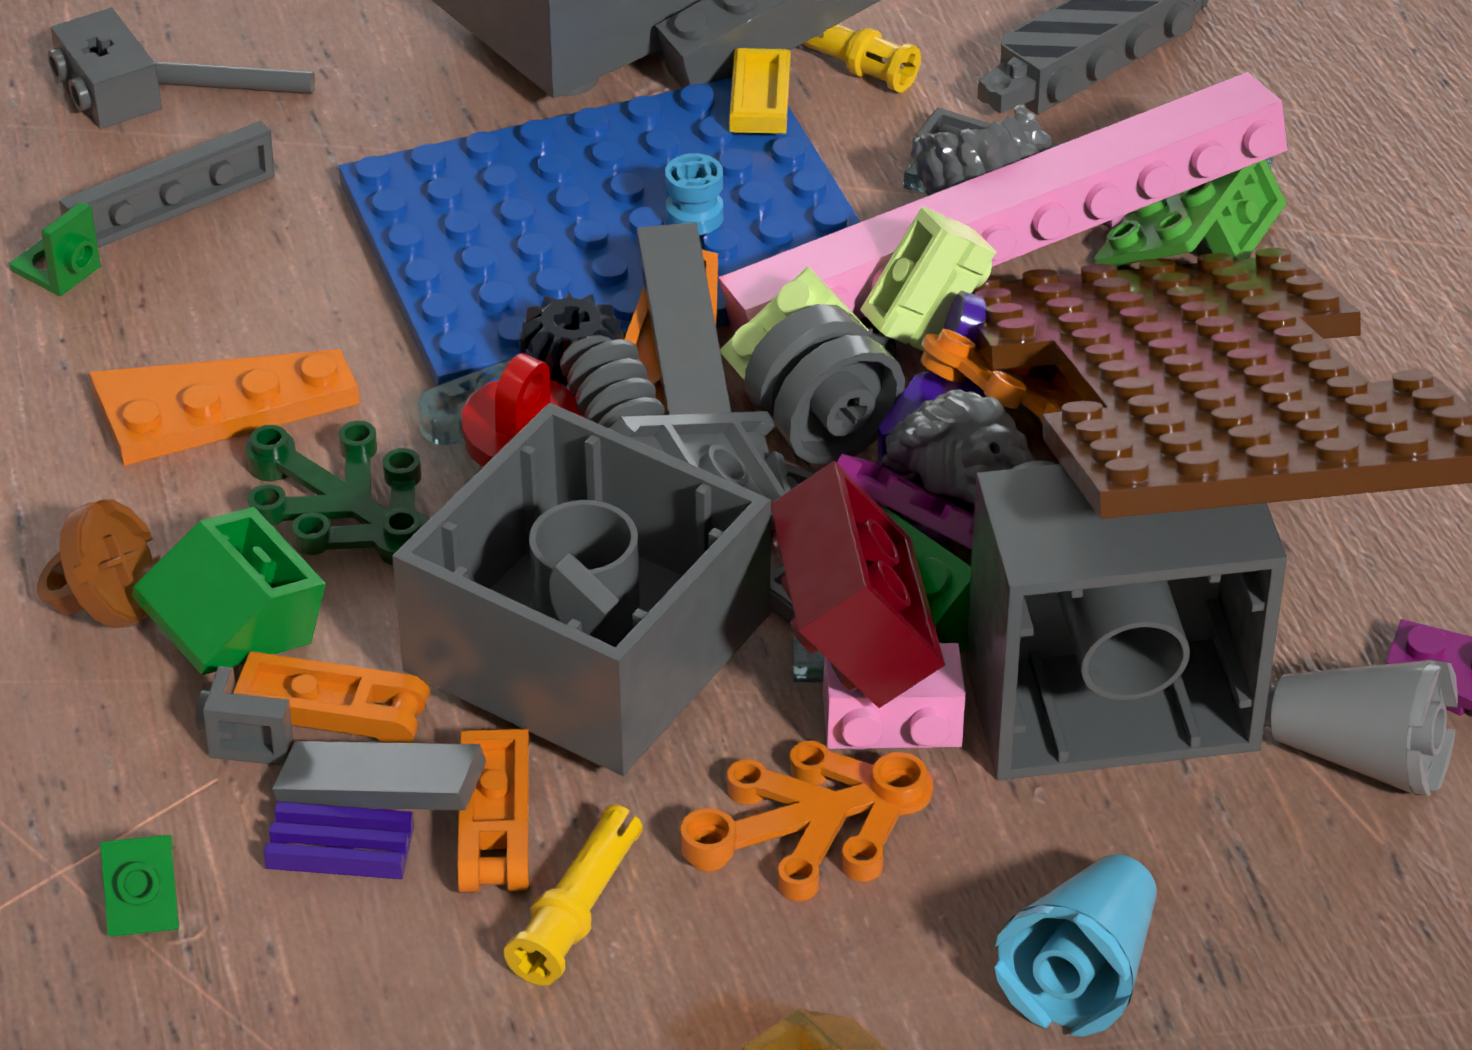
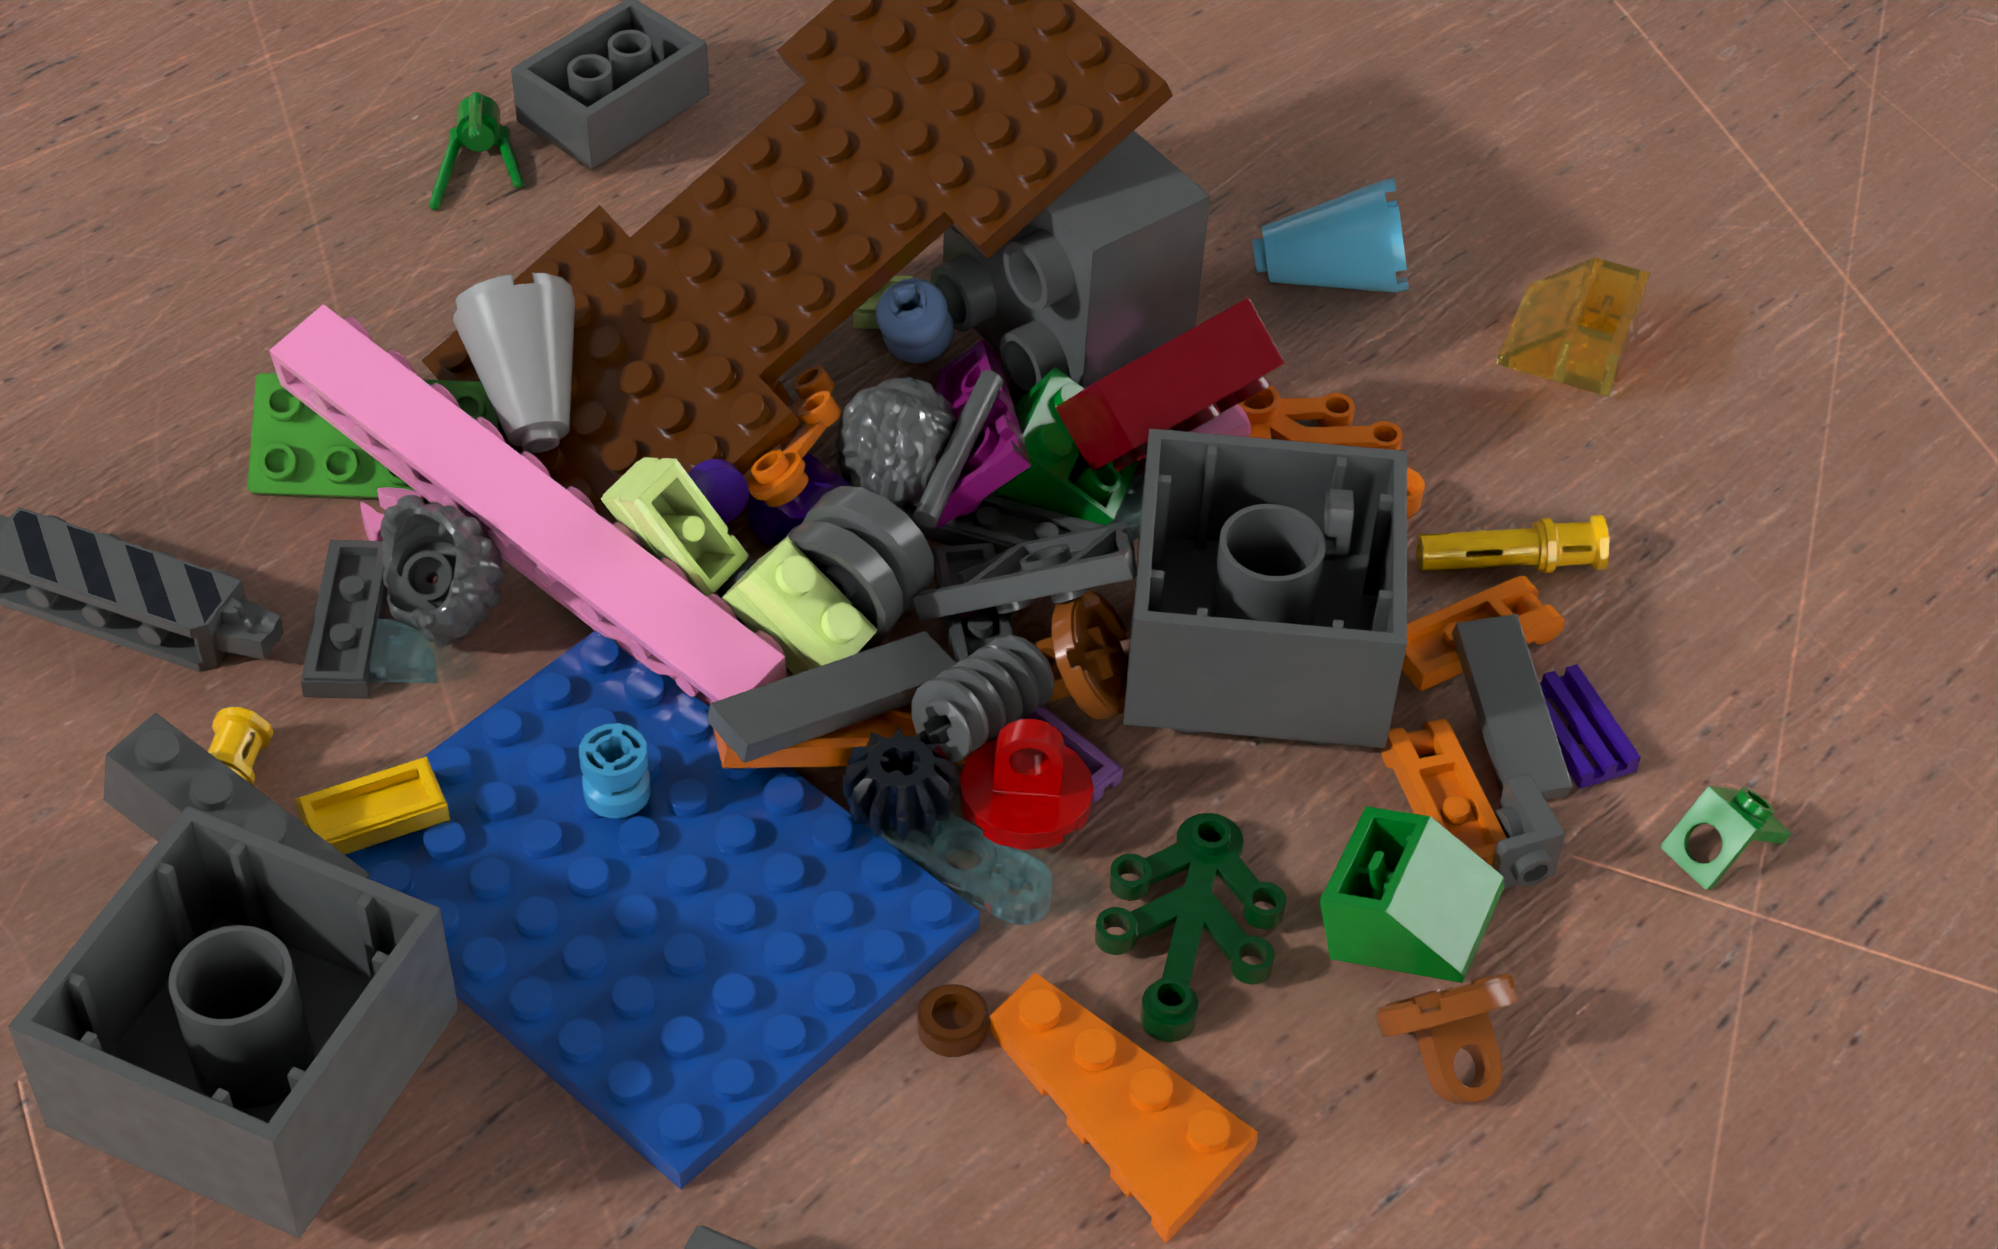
camera: 120 degrees left, 5 degrees up
(362, 340) = (952, 1020): none -> reddish brown tile
(905, 468) = (958, 449): none -> dark grey bar
(1179, 227) = (522, 354): none -> light grey cone

